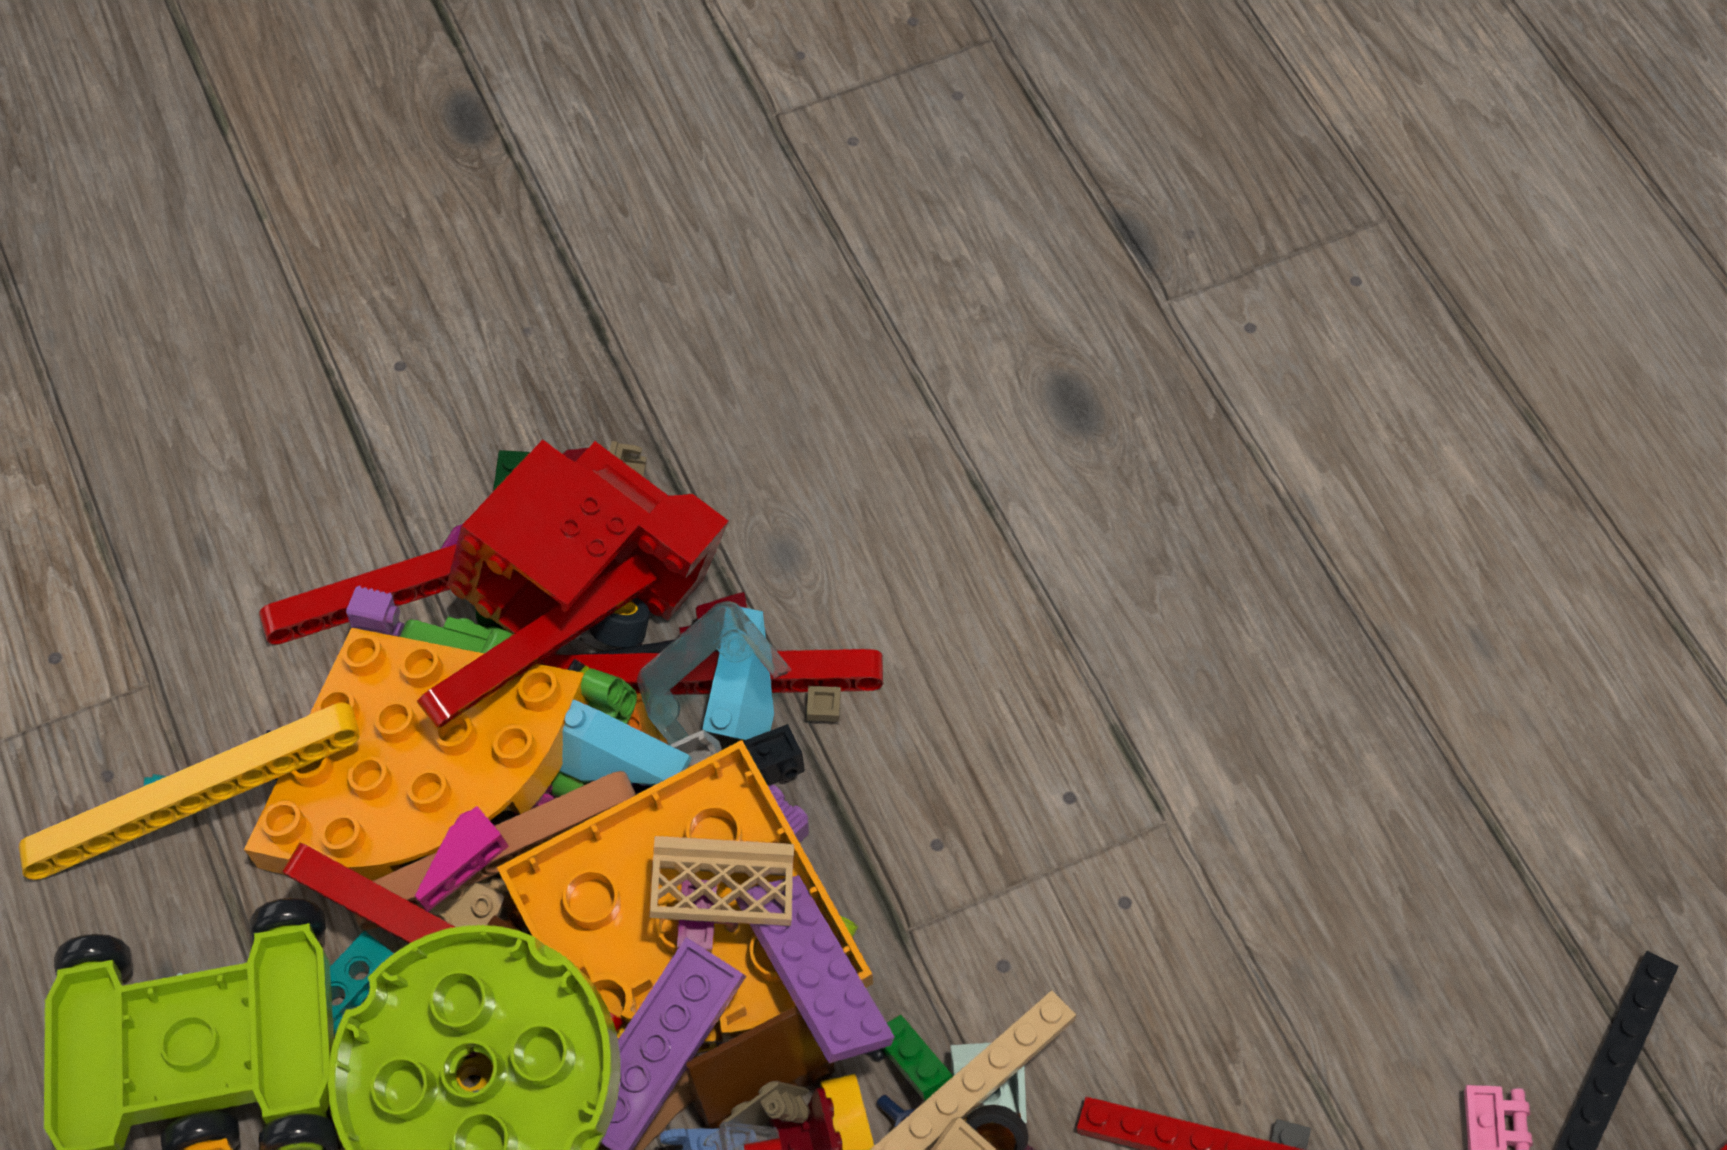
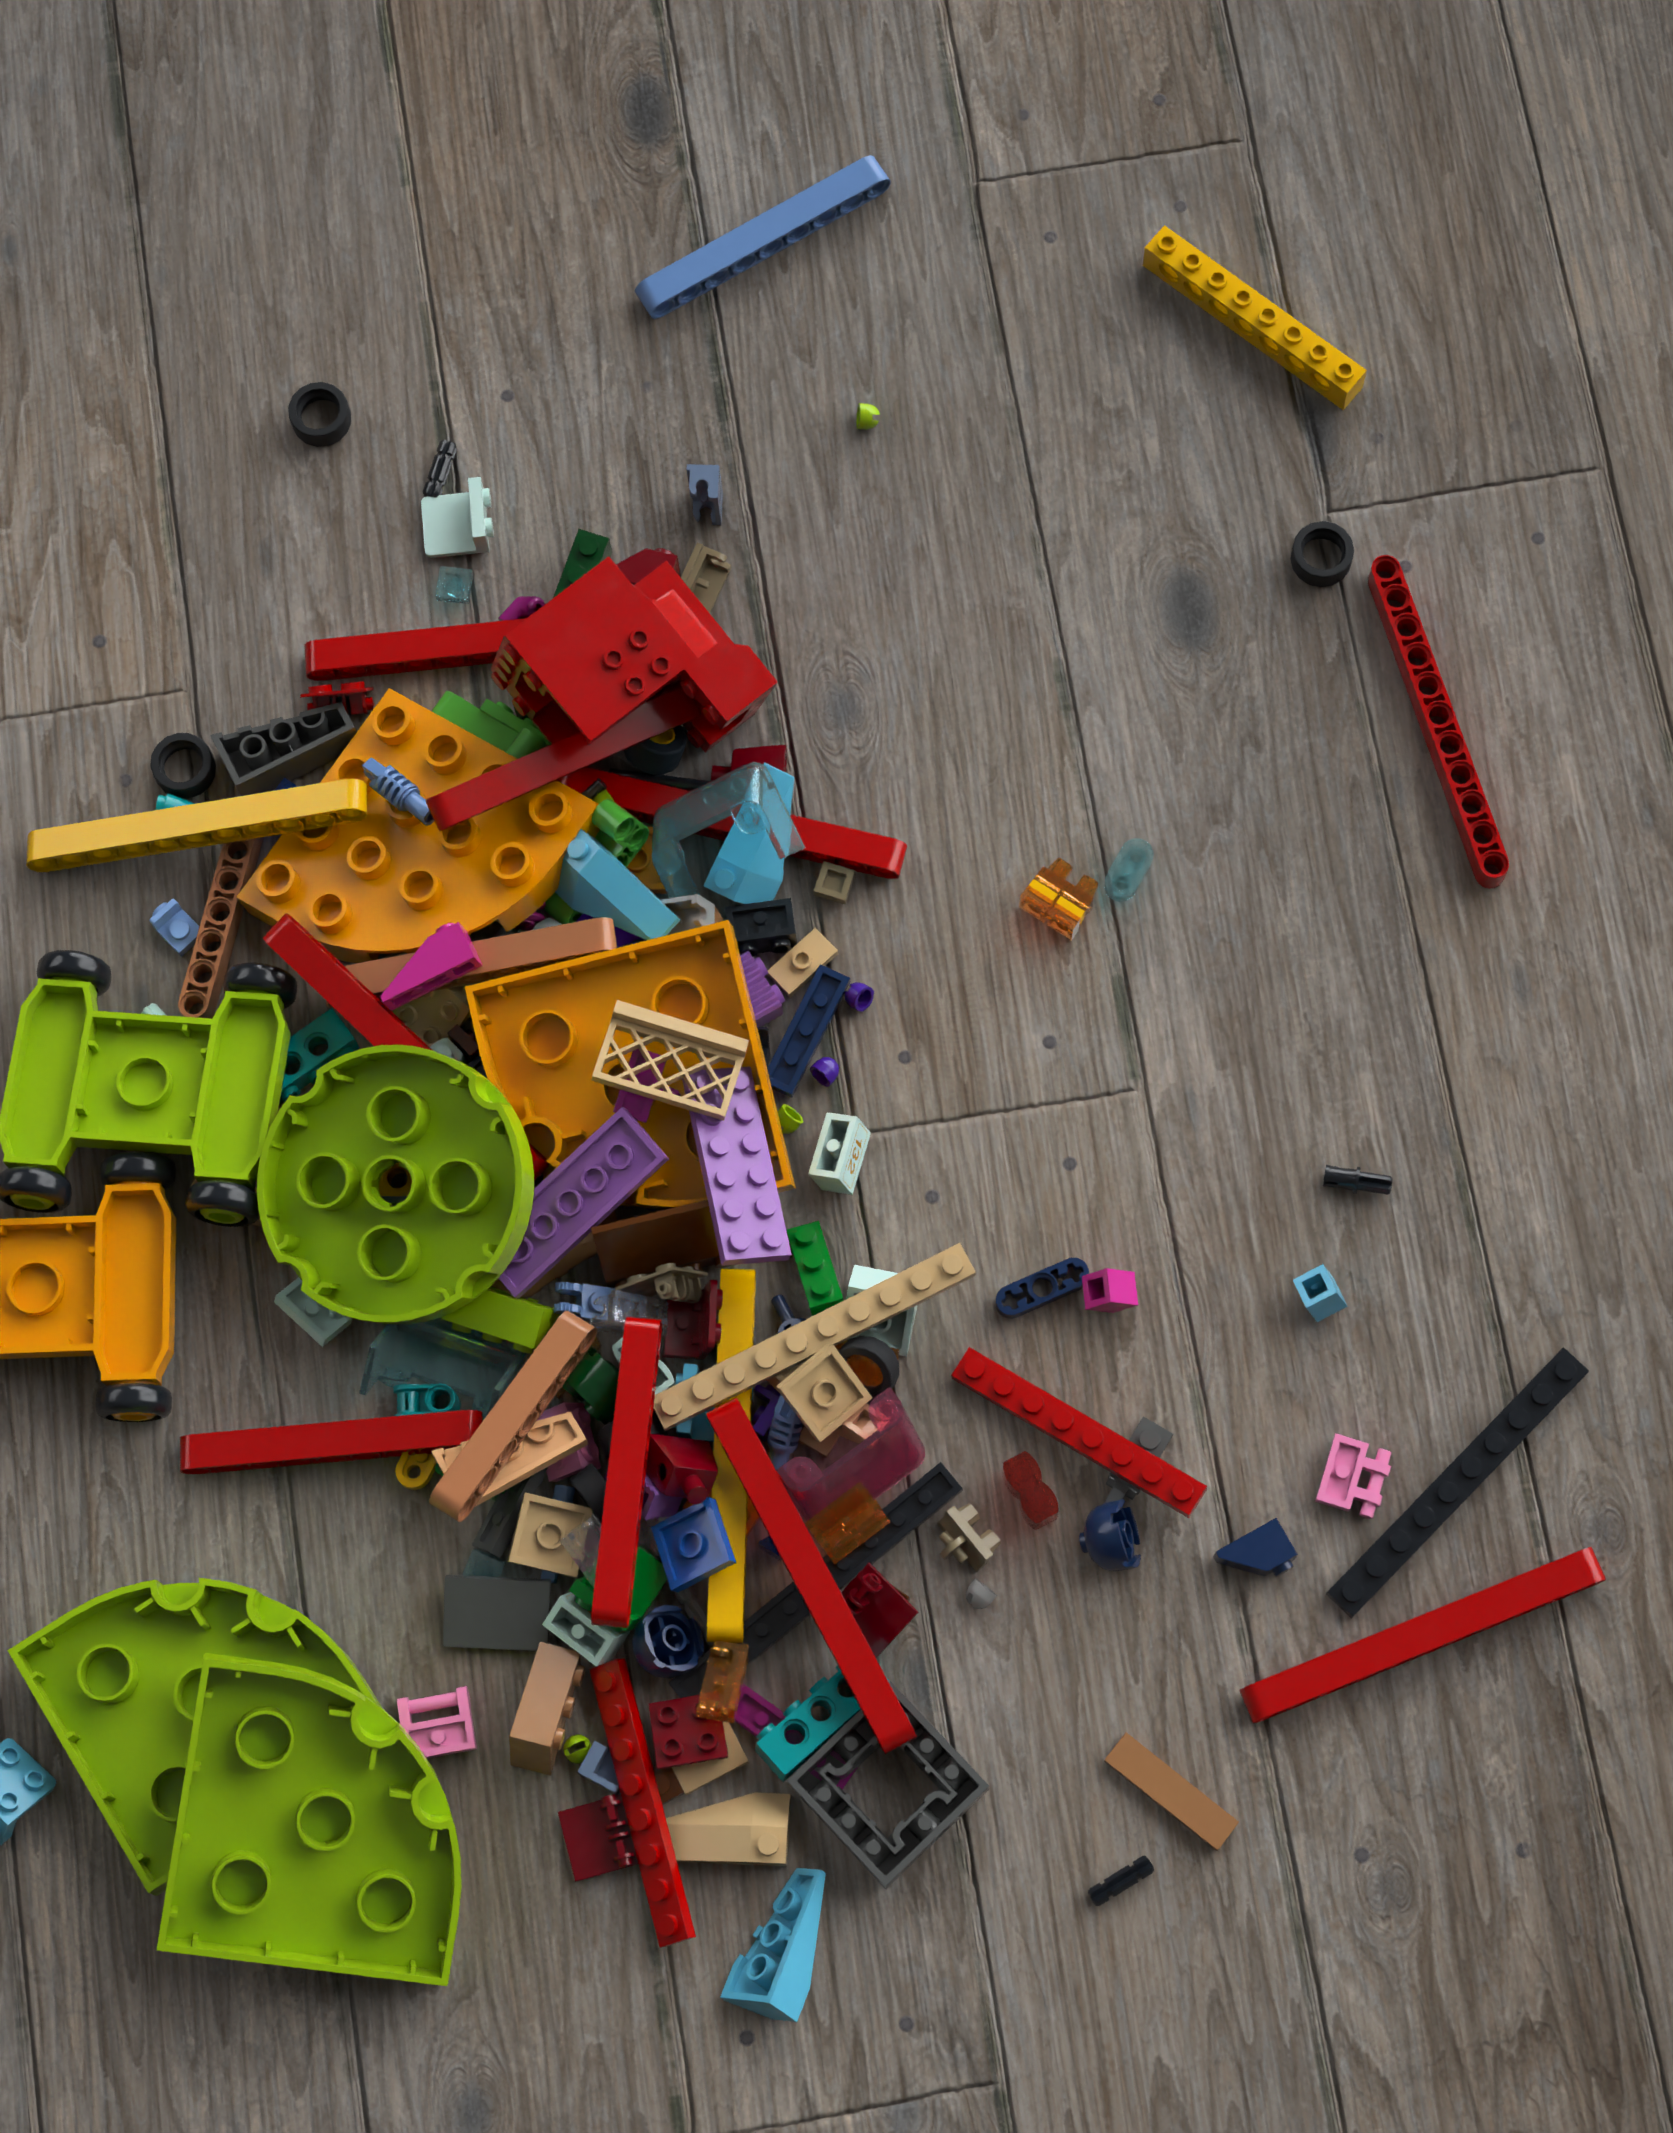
camera: 20 degrees right, 15 degrees up
(157, 726) = (176, 743): none -> black tyre
(187, 896) = (175, 926): none -> light blue bracket
(230, 434) = (315, 392): none -> black tyre
(235, 888) = (218, 931): none -> nougat beam
(260, 703) = (284, 748): none -> dark grey wedge
(314, 639) = (355, 690): none -> red hinge
(352, 439) = (440, 468): none -> black axle
(374, 612) = (414, 680): medium lavender brick -> none
(382, 476) = (457, 522): none -> light aqua bracket
(385, 706) = (397, 790): none -> medium blue hinge
(390, 530) = (454, 585): none -> clear light blue plate
(598, 191) = (762, 237): none -> medium blue beam
(607, 397) = (706, 490): none -> sand blue hinge
(733, 311) = (864, 416): none -> lime hinge
(814, 781) = (802, 962): none -> tan plate
(838, 836) = (806, 1029): none -> dark blue plate
(865, 874) = (825, 1071): none -> dark purple hinge
(877, 798) = (859, 996): none -> dark purple hinge
(904, 943) = (839, 1153): none -> light aqua brick
(1029, 656) = (1057, 900): none -> clear orange hips
(1052, 161) = (1254, 317): none -> yellow brick
(1092, 630) = (1127, 871): none -> clear light blue plate
(1125, 1045) = (1015, 1290): none -> dark blue beam
(1179, 313) = (1326, 531): none -> black tyre
(1205, 1005) = (1109, 1290): none -> dark pink brick
(1314, 426) = (1437, 735): none -> red beam
(1400, 848) = (1356, 1180): none -> black axle
(1405, 956) = (1320, 1293): none -> medium azure brick

